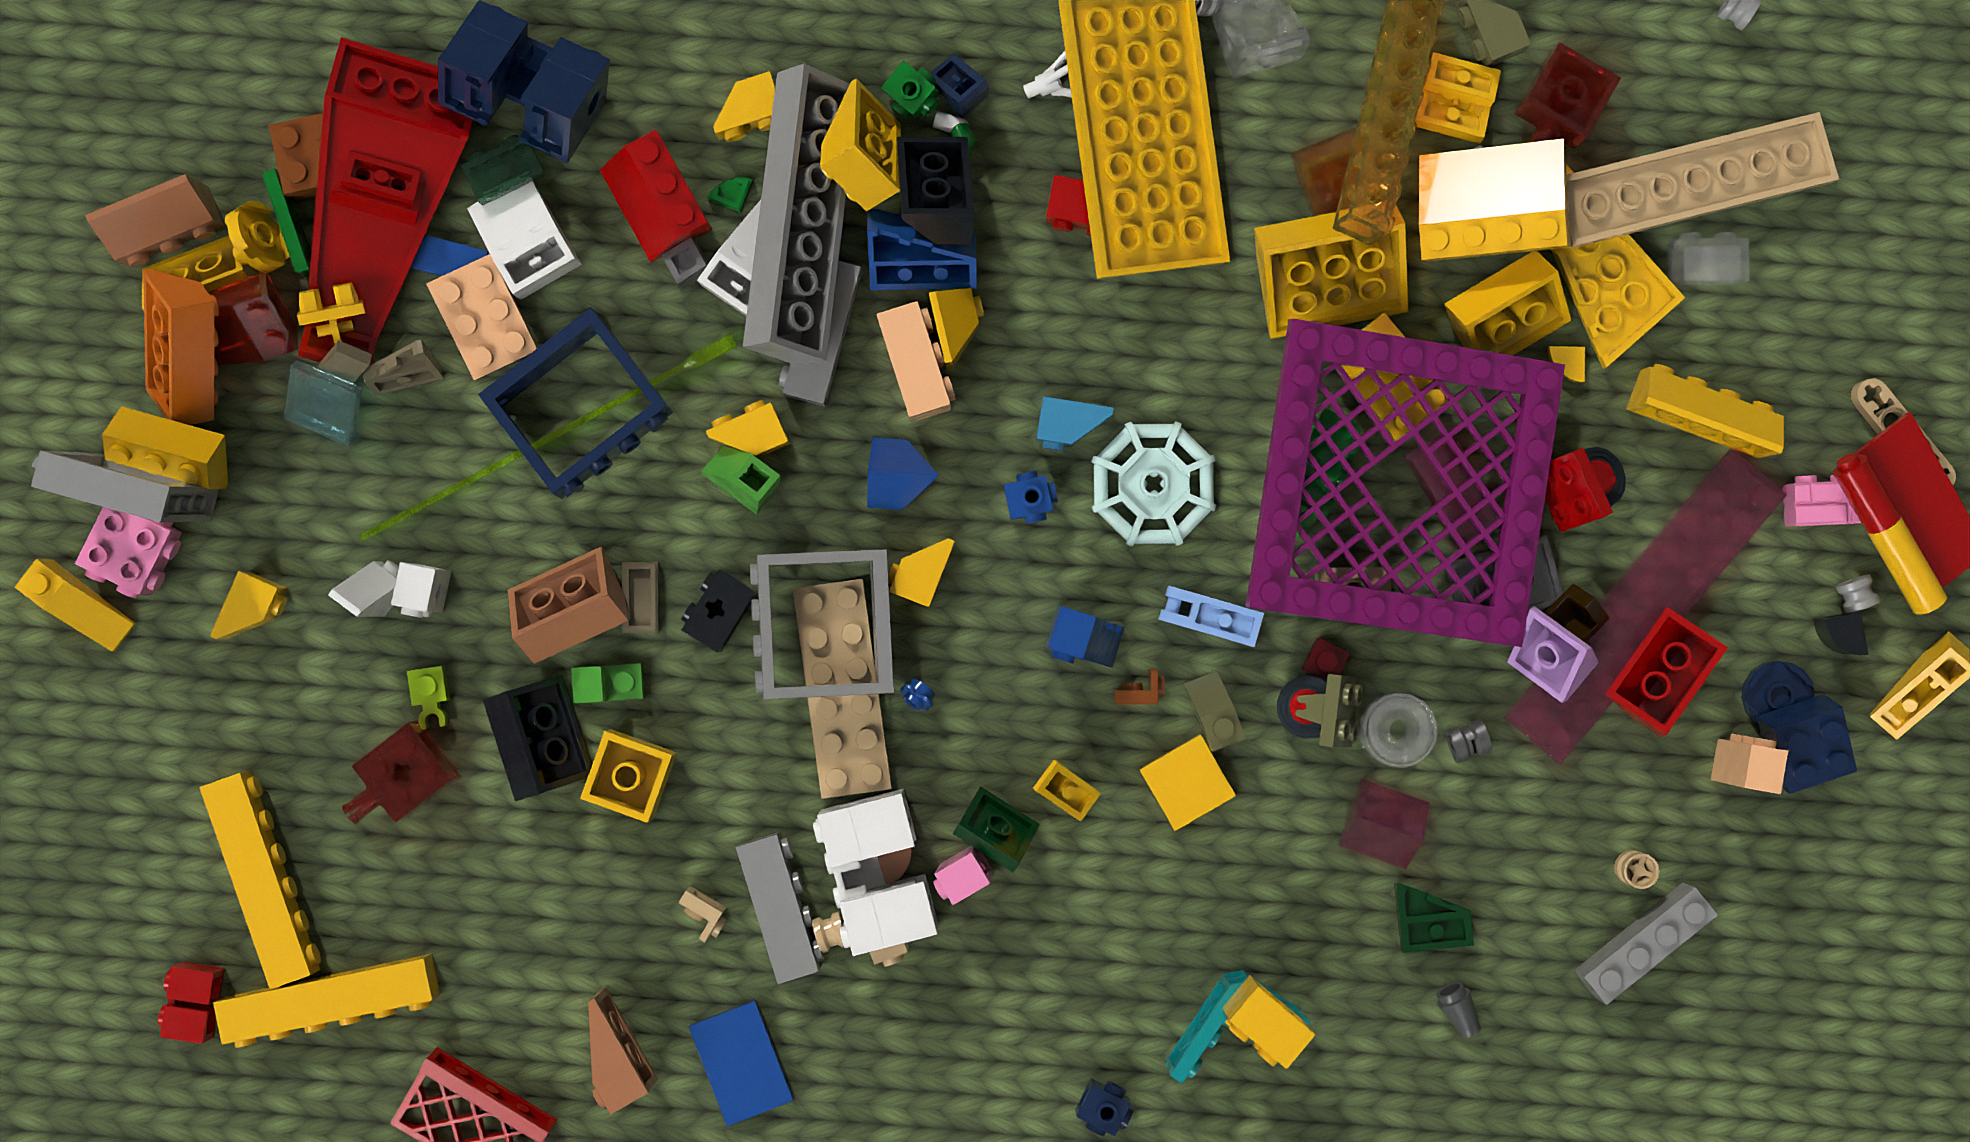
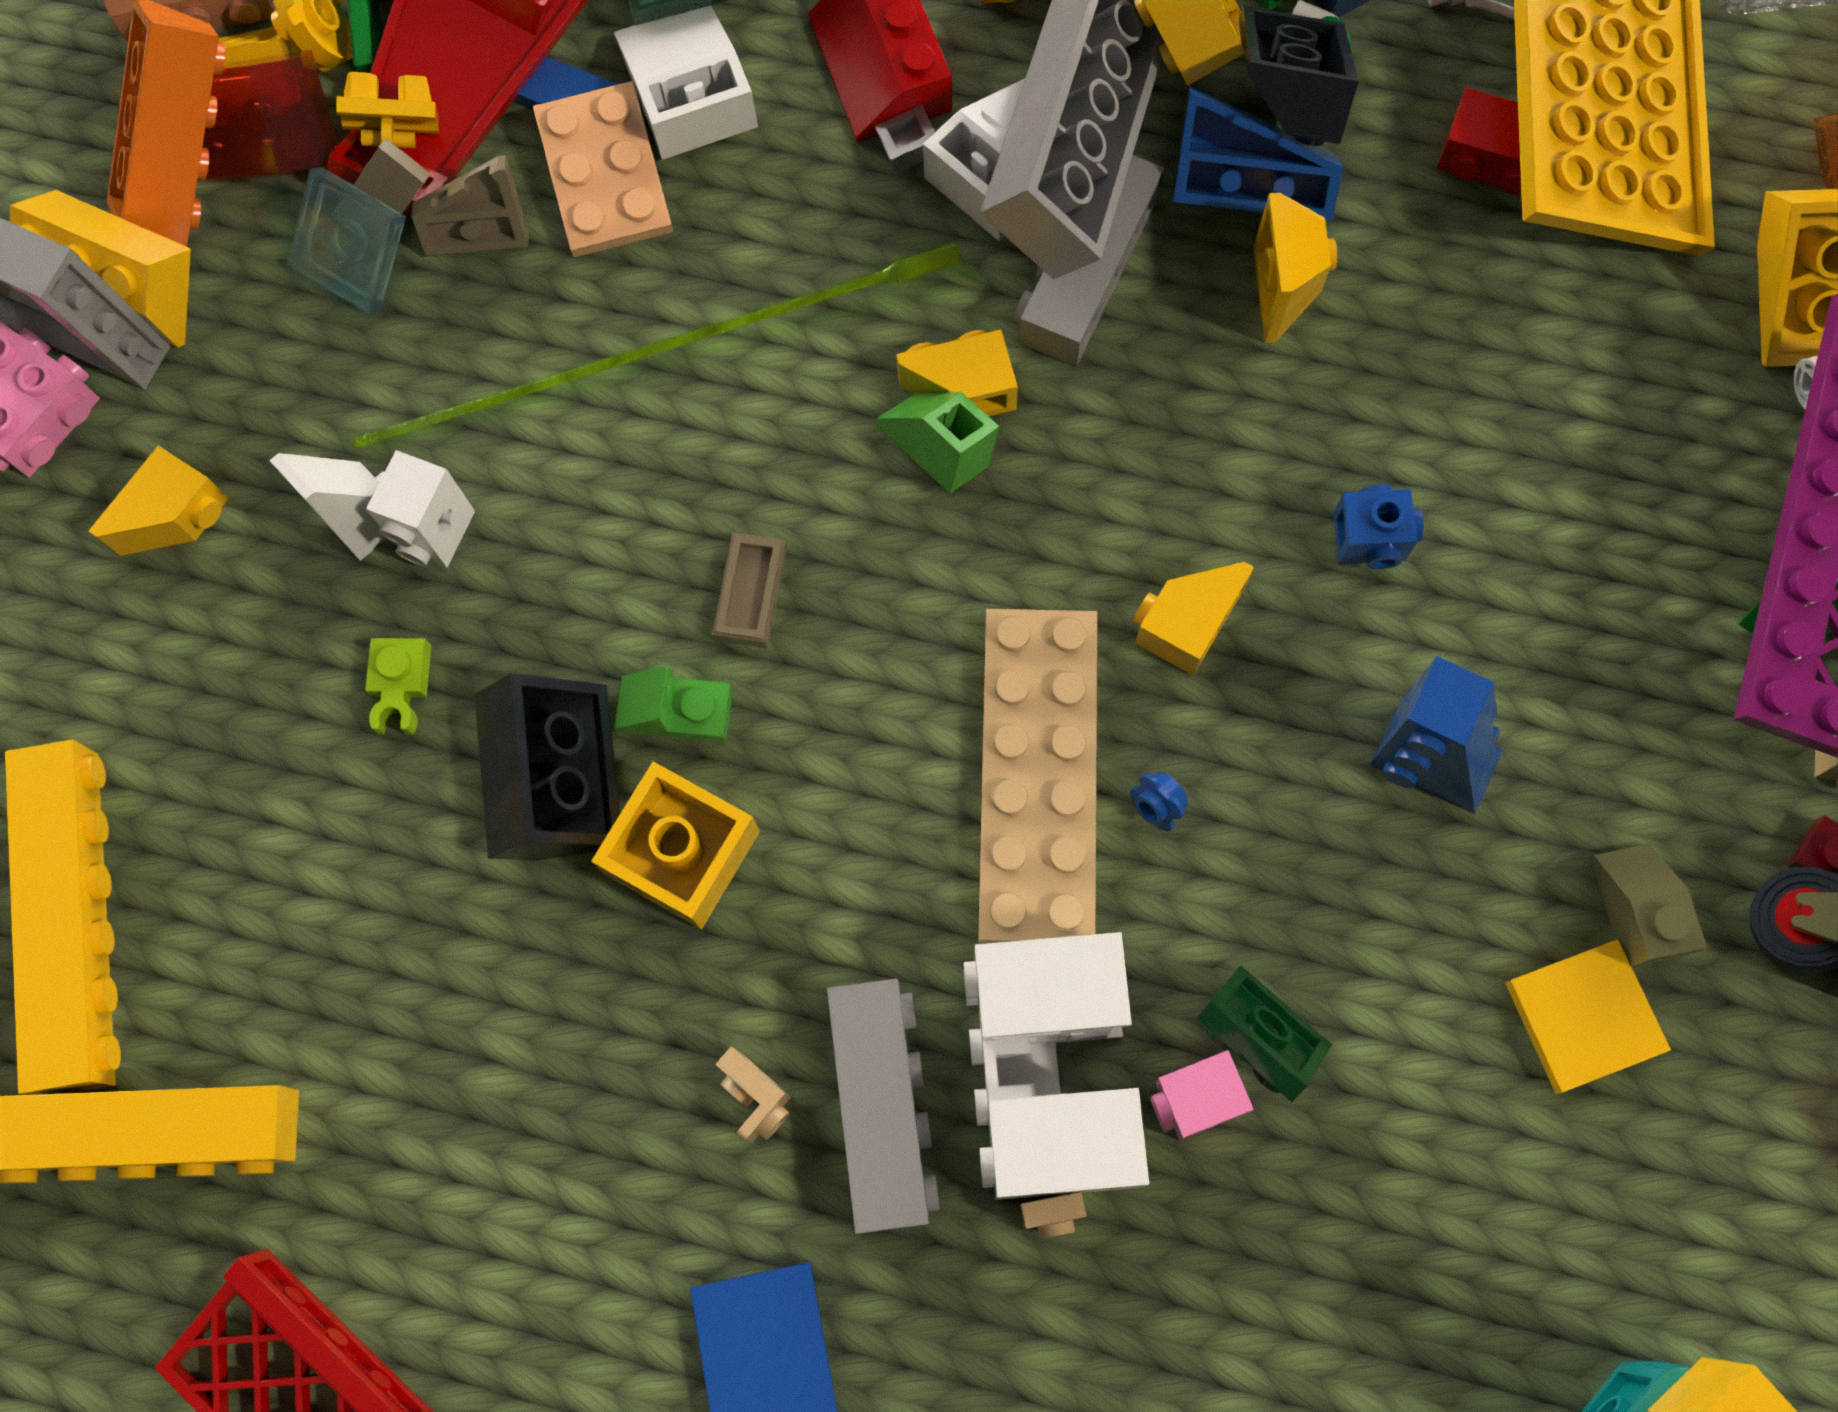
camera: 20 degrees right, 15 degrees down
(383, 776) = (294, 783): clear red brick -> none
(540, 363) = (681, 234): dark blue window -> none
(566, 606) = (634, 578): nougat slope -> none
(617, 1061) = (555, 1318): nougat slope -> none
(731, 193) = (988, 68): green tile -> none
(736, 600) = (861, 649): black brick -> none
(828, 931) = (957, 1164): tan wheel -> none
(881, 624) = (1128, 576): light grey window -> none
(894, 864) = (1082, 1063): nougat tile -> none
(896, 474) = (1172, 471): blue slope -> none
(916, 361) = (1228, 304): light nougat brick -> none
(1067, 790) = (1387, 988): yellow slope -> none
(1068, 421) = (1450, 429): dark azure slope -> none
(1135, 695) = (1514, 857): dark orange bracket -> none
(1153, 463) = (1564, 572): light aqua plate -> none
(1212, 616) = (1651, 755): light blue plate -> none

